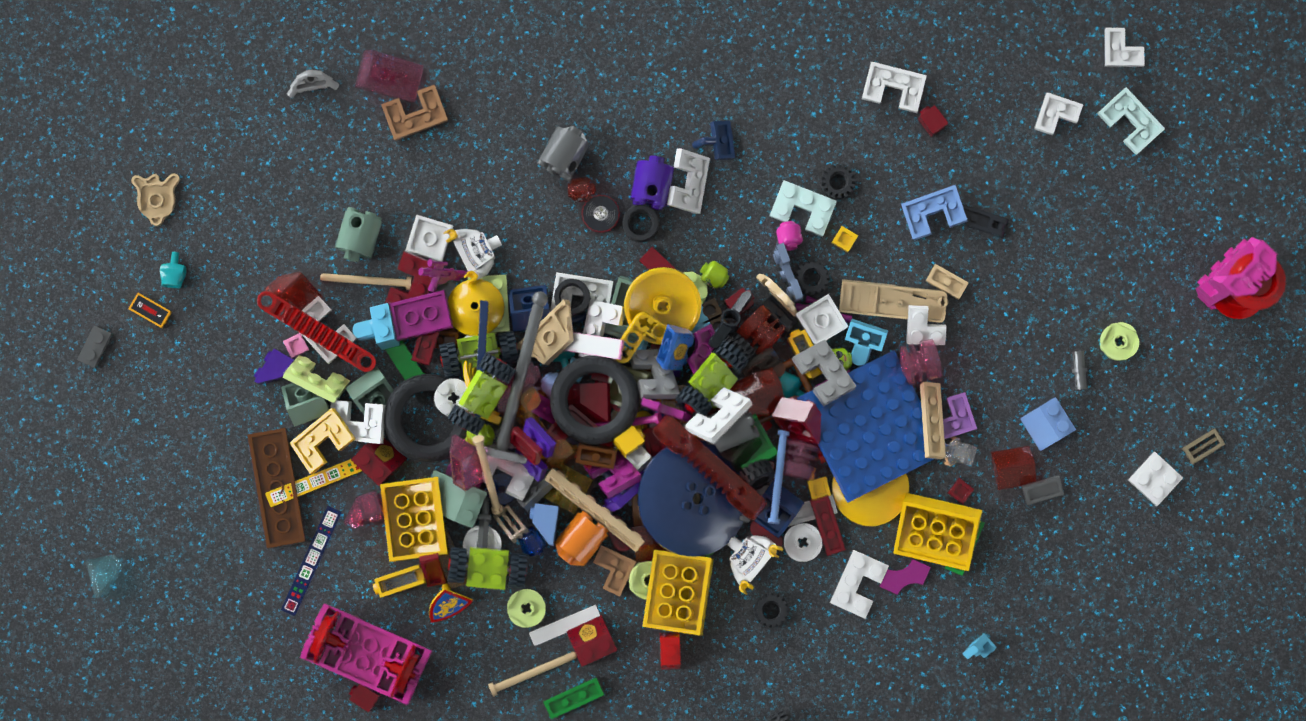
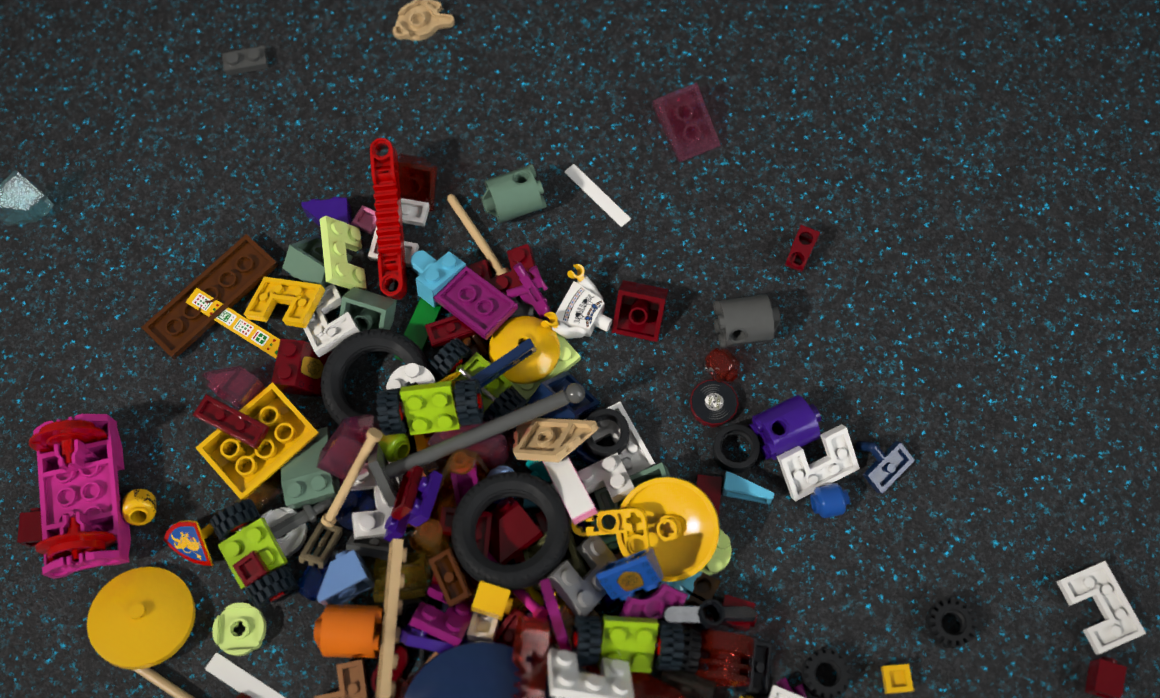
camera: 60 degrees right, 15 degrees down
(150, 310) = (311, 80): tile -> none
(172, 273) = (358, 74): teal piece -> none
(311, 80) = (626, 63): light grey piece -> none
(311, 560) = (154, 379): clear blue sticker -> none
(389, 527) = (231, 421): none -> dark red tile
(395, 176) = (597, 195): none -> white sticker
(399, 581) = (187, 477): window -> none
(399, 623) = (139, 507): none -> yellow head
(406, 125) = (651, 166): medium nougat plate -> none
(428, 238) = (558, 258): white plate -> none
(432, 570) = (217, 496): dark red tile -> none
(475, 663) = (141, 618): none -> yellow dish
(499, 574) = (251, 568): none -> dark red tile
(503, 212) = (639, 310): none -> dark red slope
(541, 74) = (802, 248): none -> dark red leg
(666, 241) = (740, 488): none -> medium azure slope
(714, 274) = (744, 563): lime head -> none
(715, 193) = (829, 500): none -> blue head
(776, 291) = (779, 648): tan tile -> none
(781, 257) = (798, 660): sand blue plate -> none
(790, 235) = (850, 613): dark pink head -> none
(793, 195) = (907, 619): light aqua plate -> none

